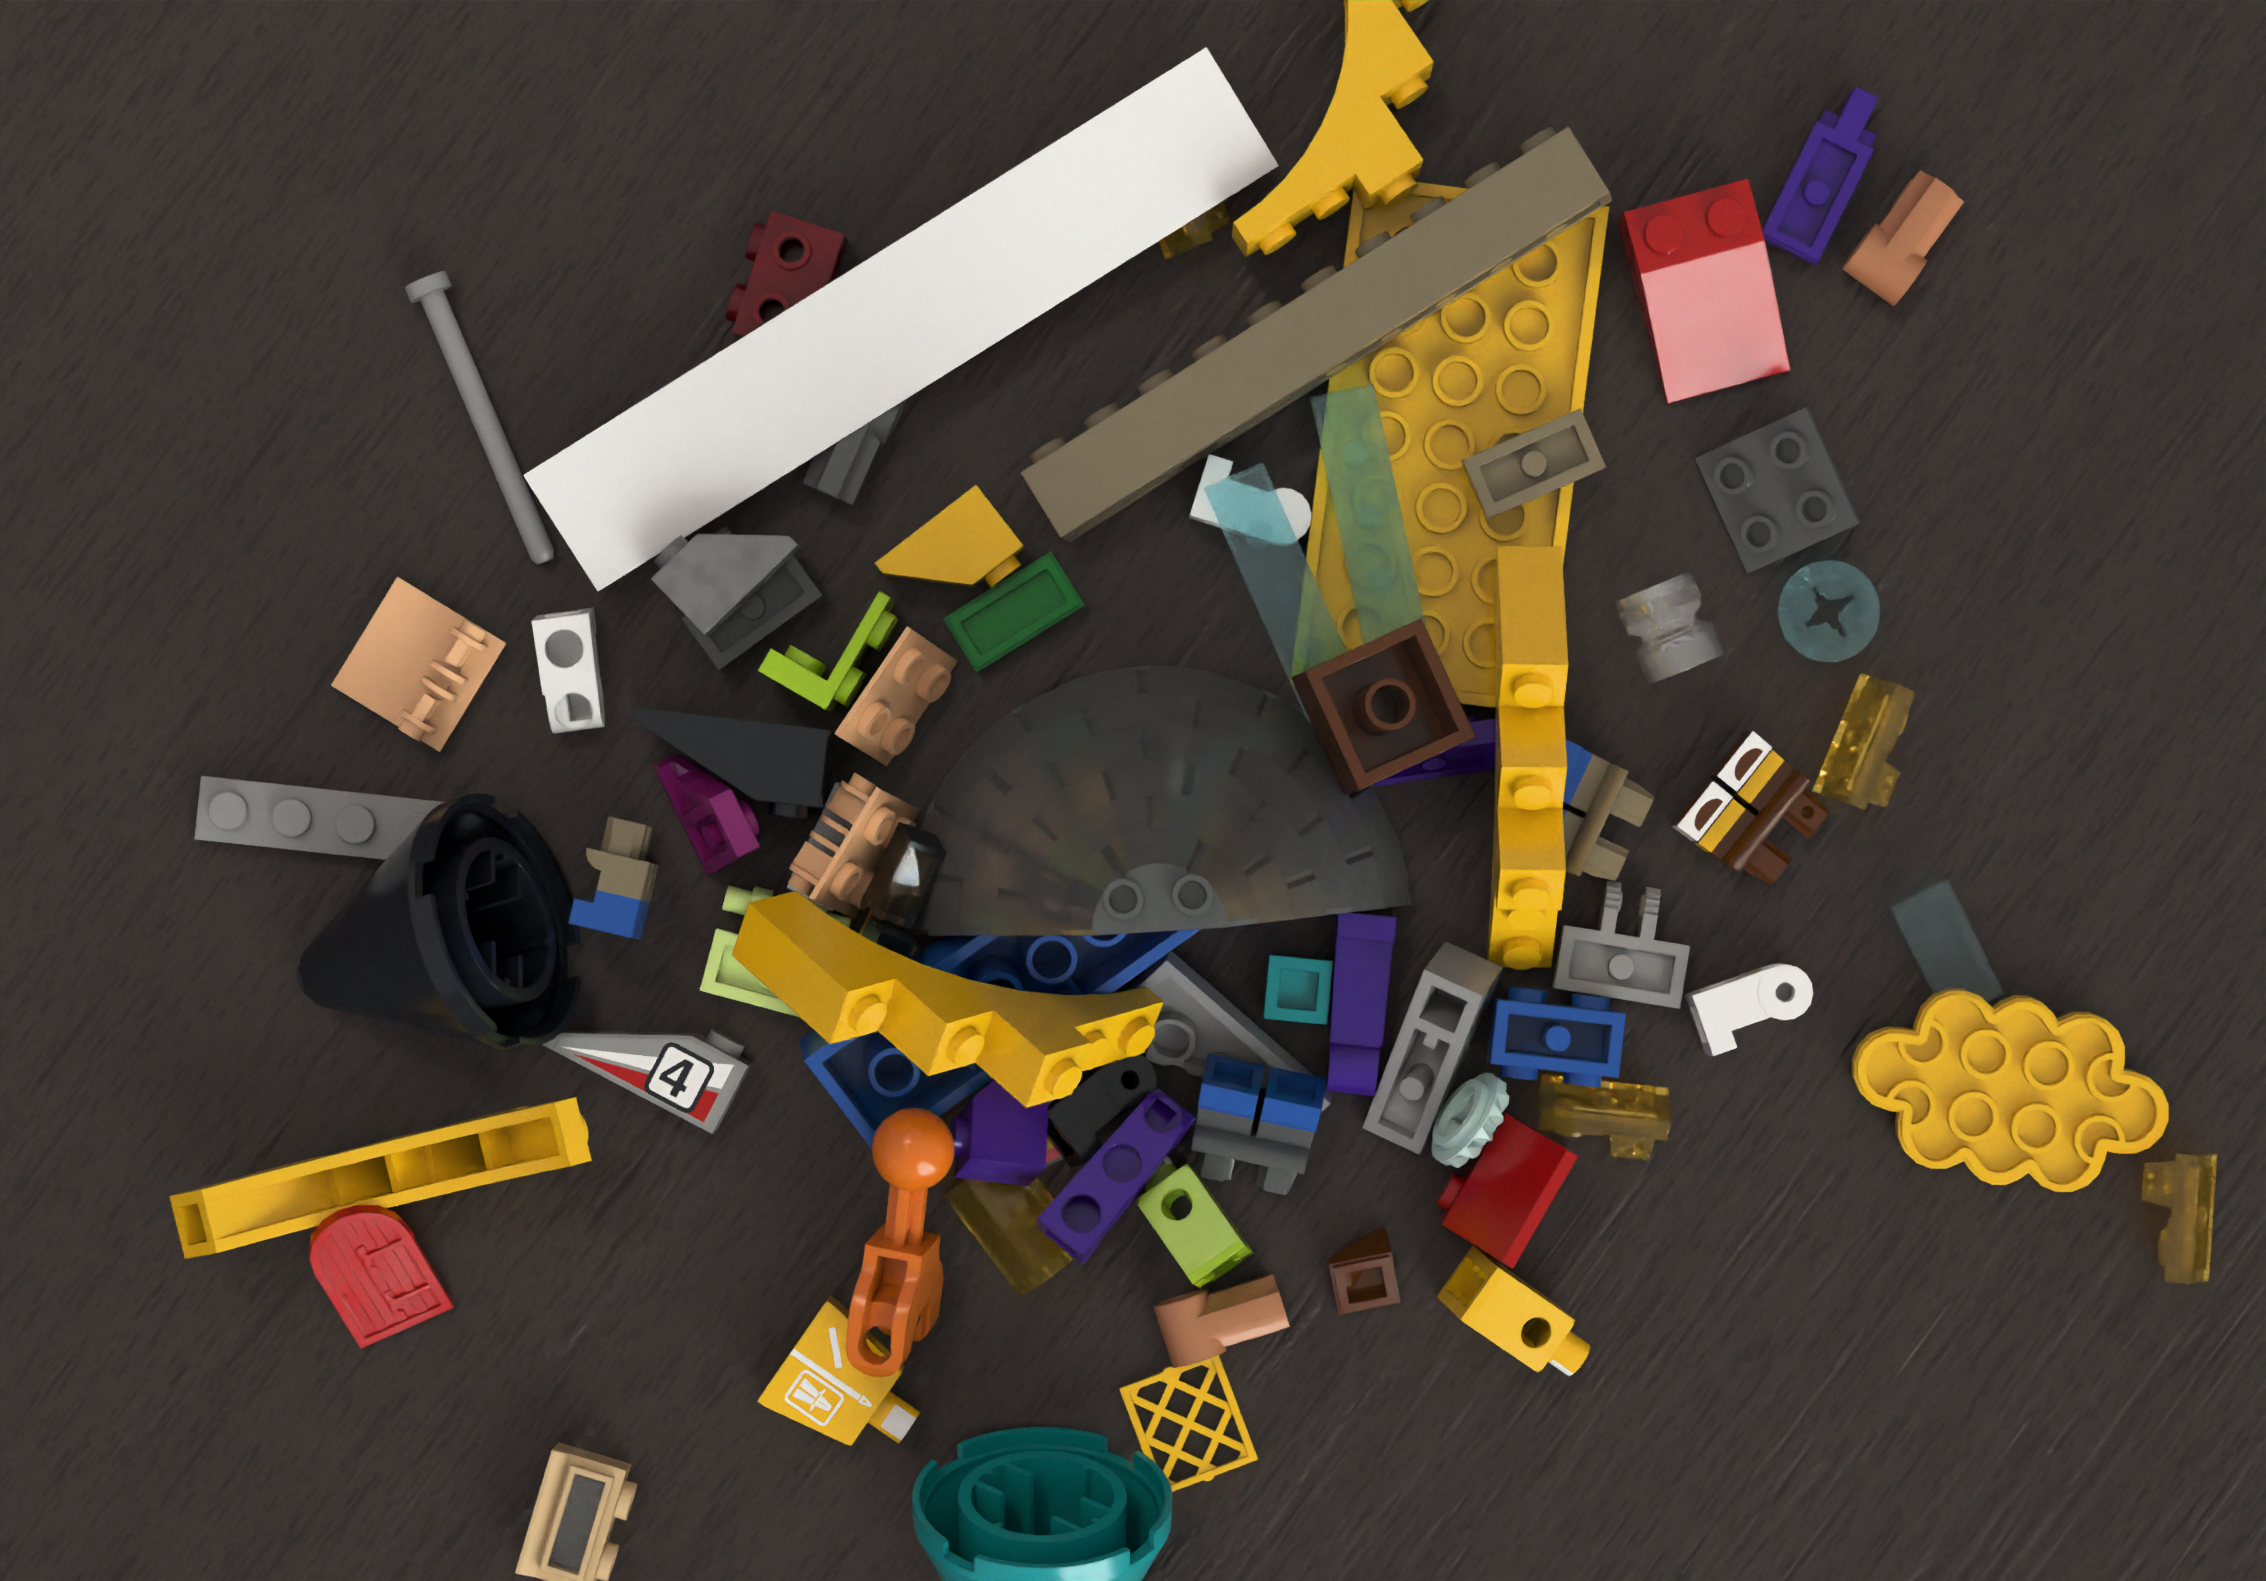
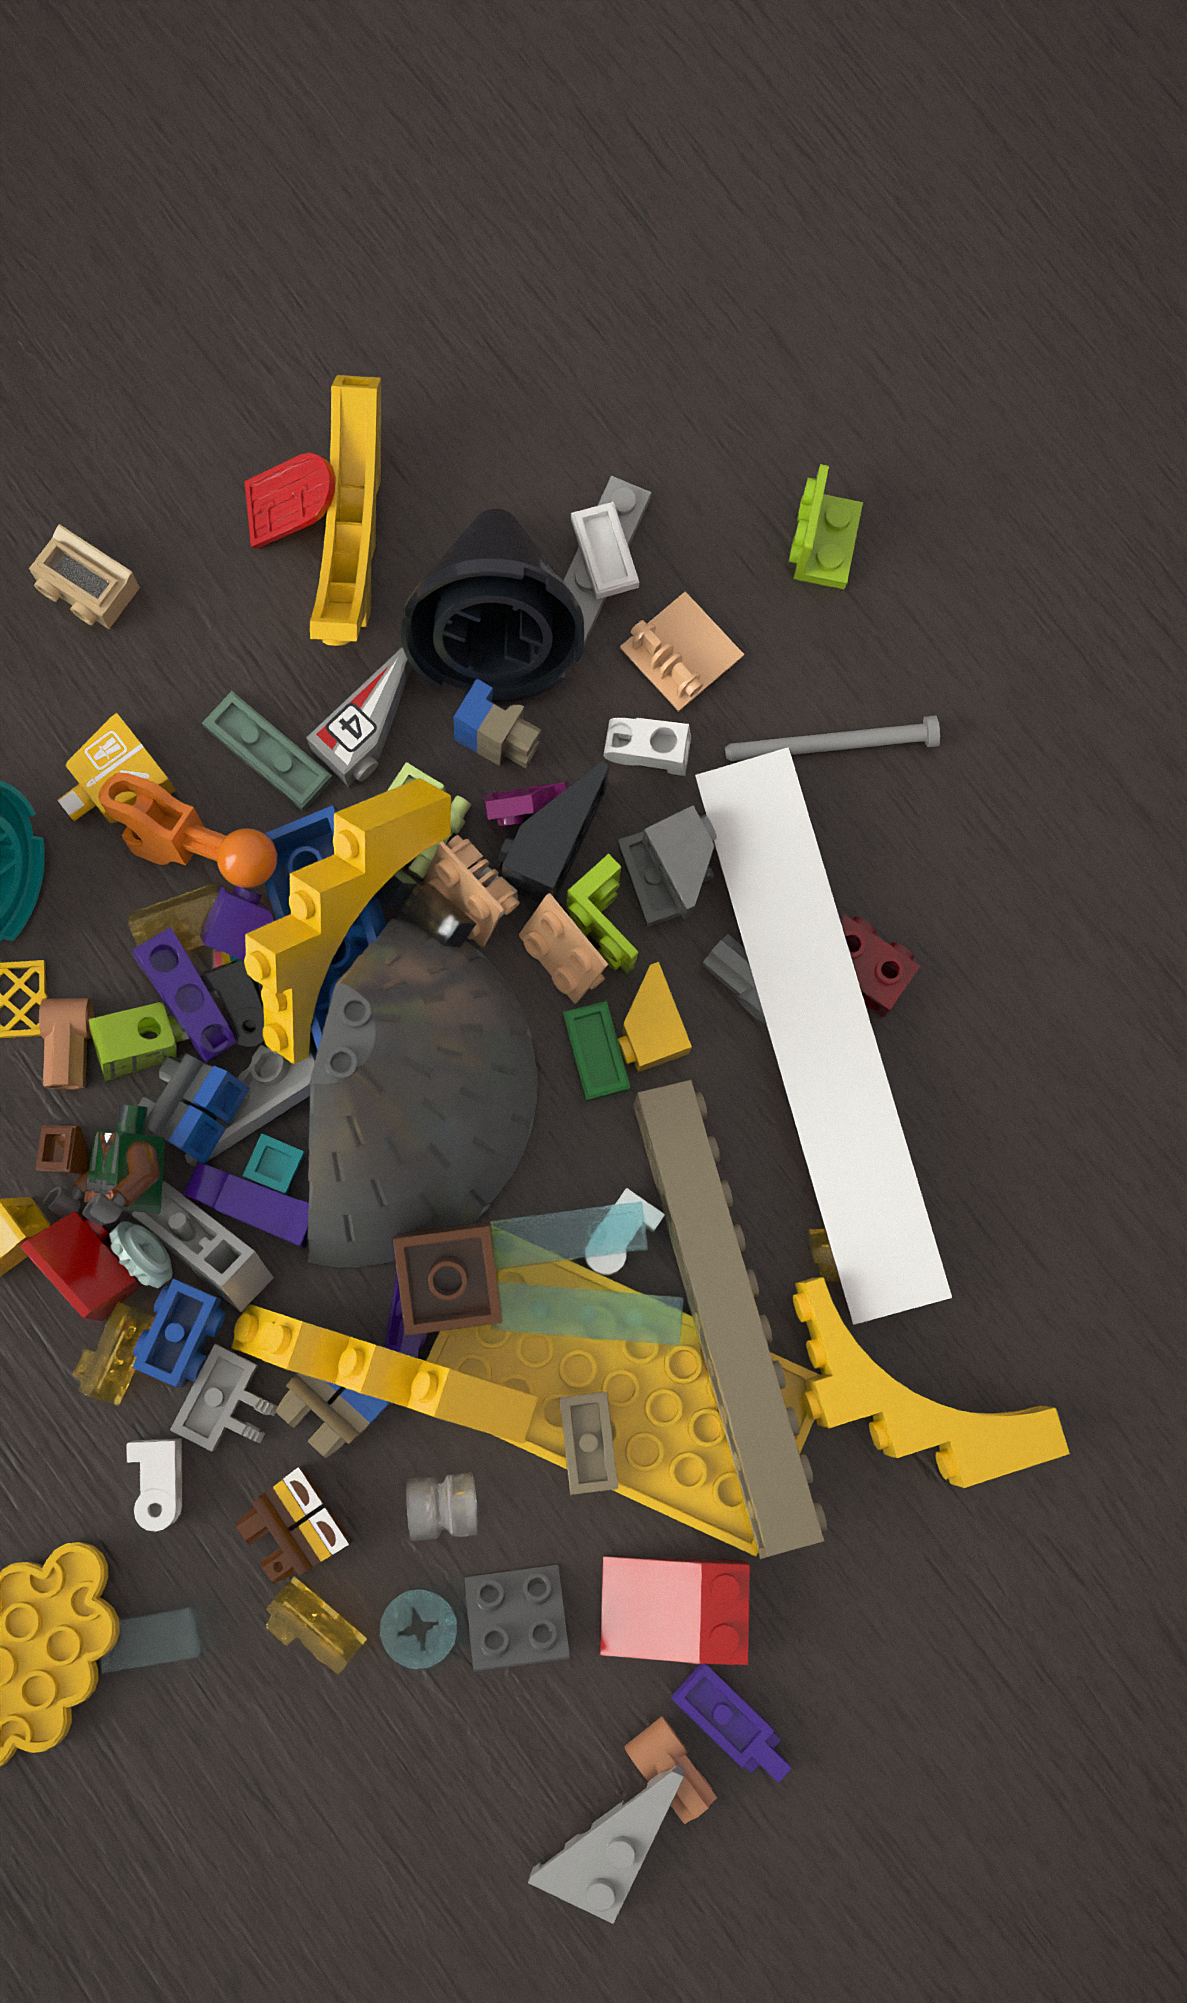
camera: 100 degrees right, 10 degrees down
(189, 509) = (824, 535): none -> lime bracket
(313, 812) = (605, 550): none -> white tile
(738, 1187) = (267, 751): none -> sand green tile
(1378, 1179) = (121, 1175): none -> torso
(2040, 288) = (603, 1862): none -> light grey wing

